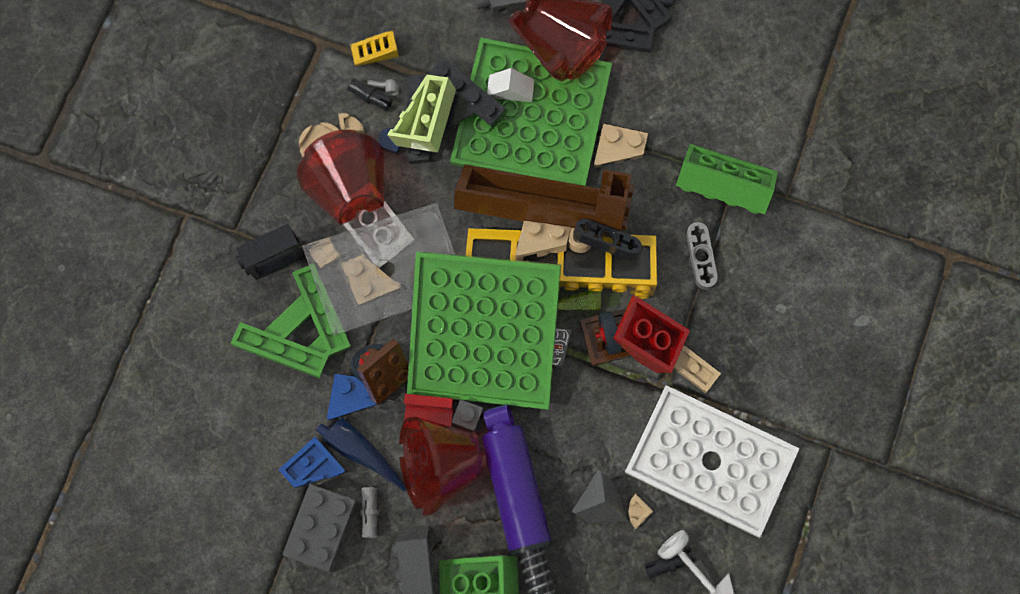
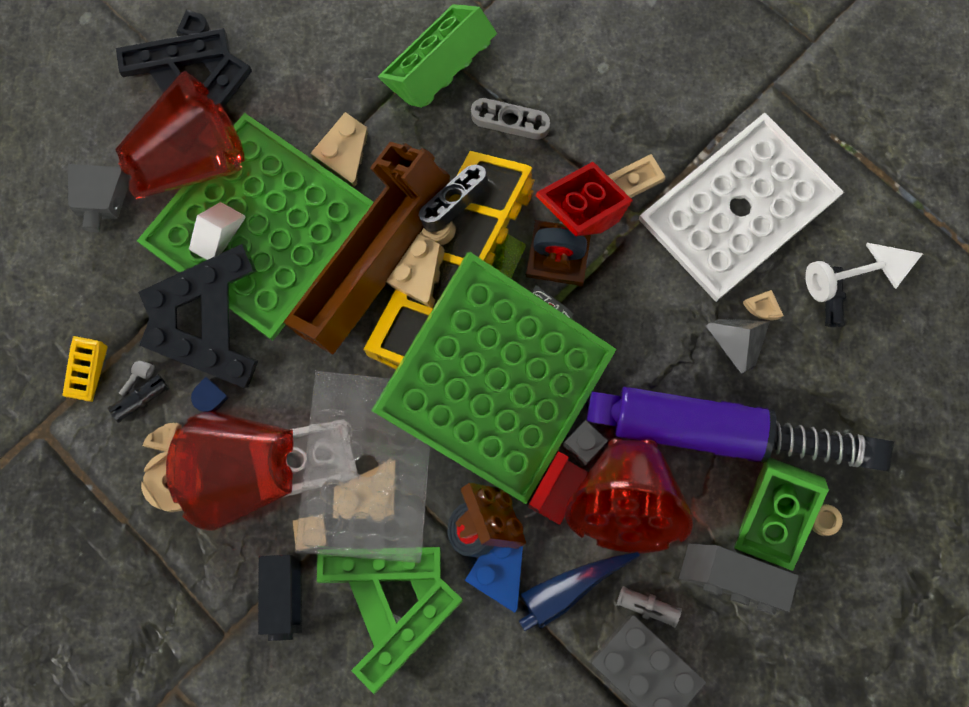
camera: 70 degrees left, 0 degrees up
(311, 465) = (564, 654): blue wing -> none
(426, 116) = (206, 339): yellowish green wedge -> none

